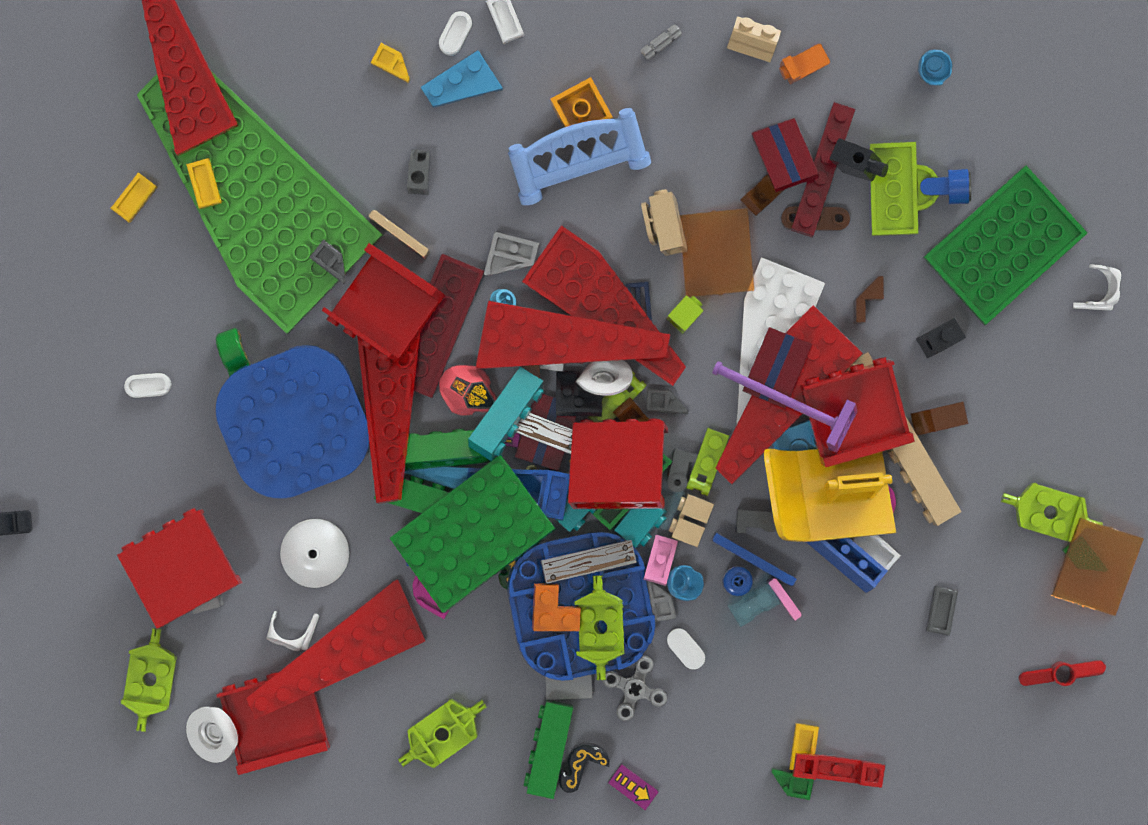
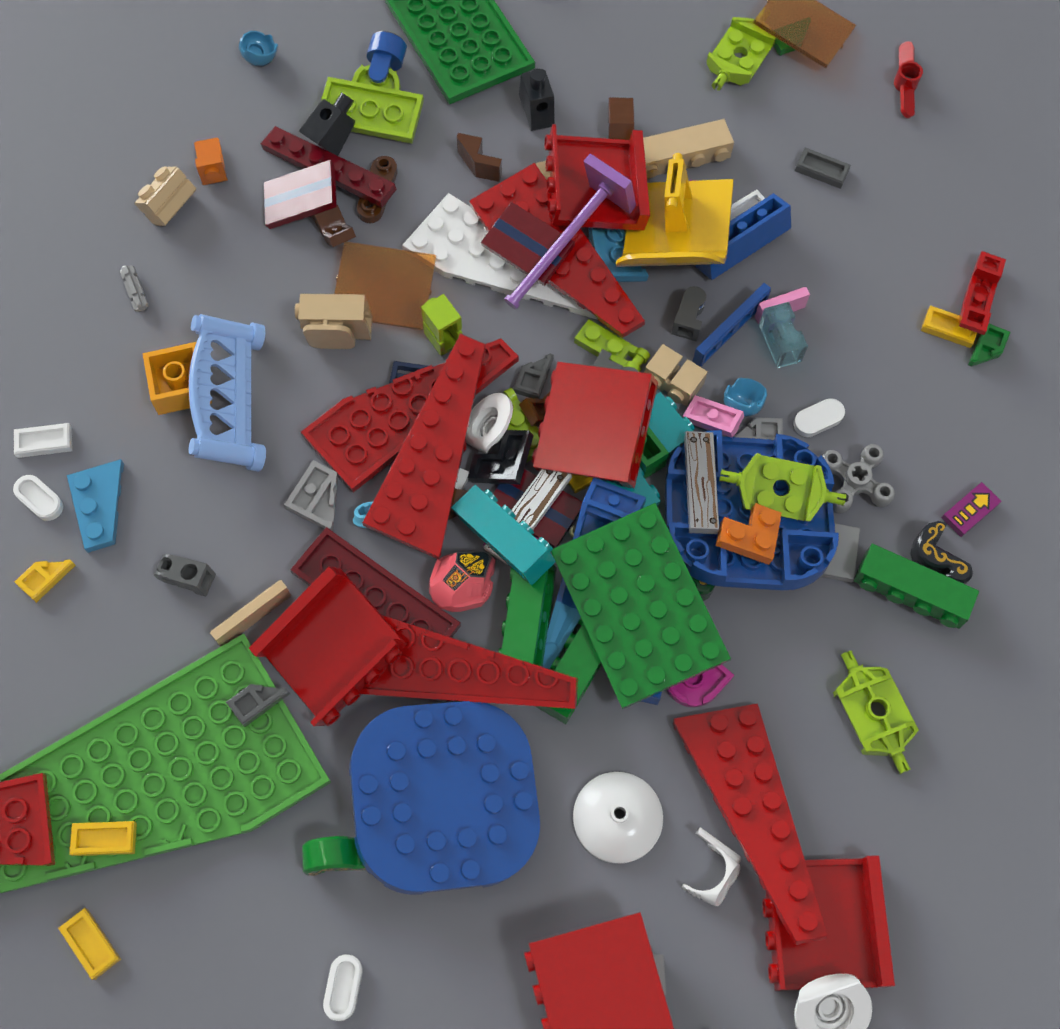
camera: 80 degrees left, 20 degrees down
(729, 579) = (753, 344): blue head -> none

